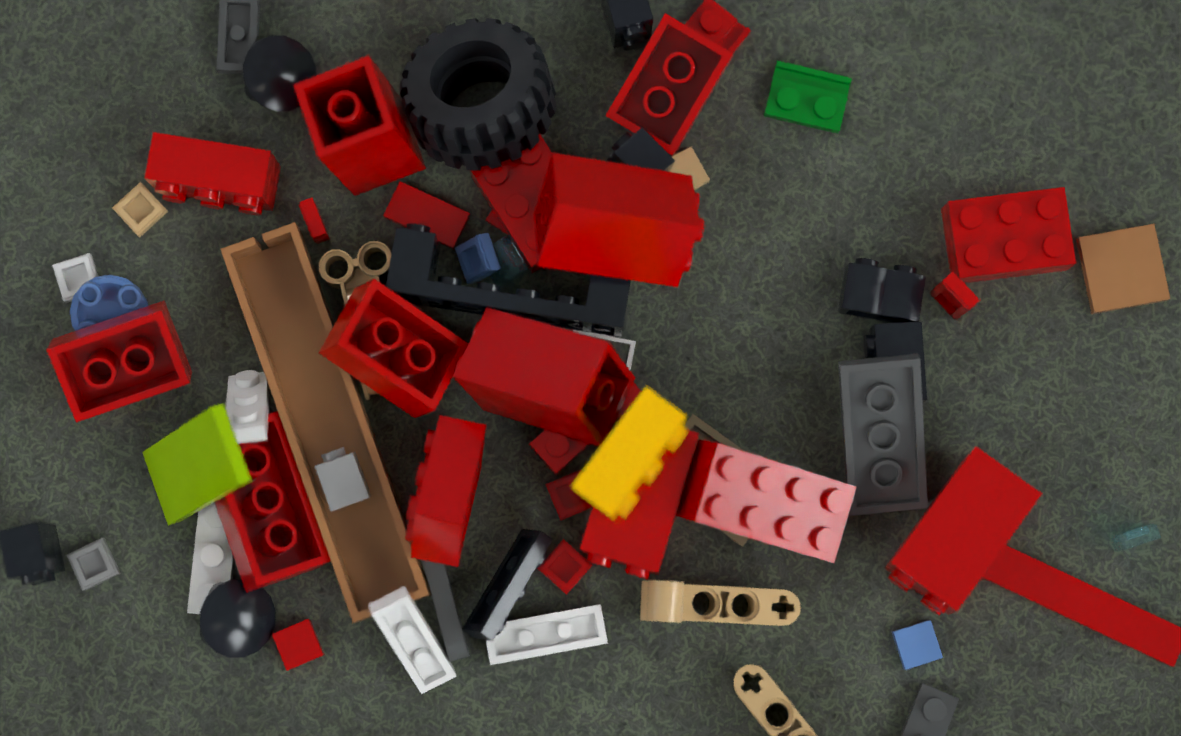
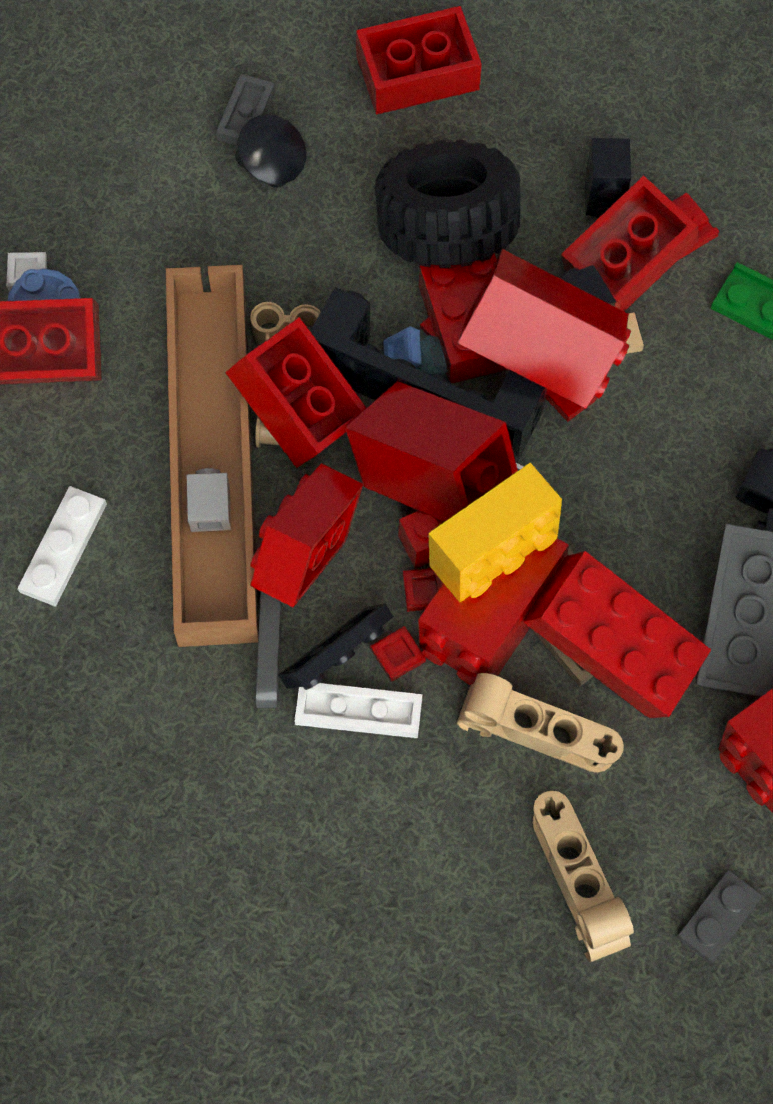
camera: 20 degrees right, 15 degrees down
(140, 209) = (104, 230): tan tile -> none
(196, 465) = (75, 442): lime tile -> none
(212, 173) = (182, 208): red brick -> none
(235, 620) = (63, 604): black dish -> none
(248, 405) = (141, 408): white plate -> none
(271, 516) = (125, 501): red brick -> none
(298, 644) = (113, 650): red tile -> none
(314, 220) = (260, 278): red tile -> none
(359, 126) = (330, 194): red brick -> none
(412, 640) = (226, 667): white plate -> none
(418, 207) = (384, 313): red tile -> none
(917, 644) = (732, 831): medium blue tile -> none

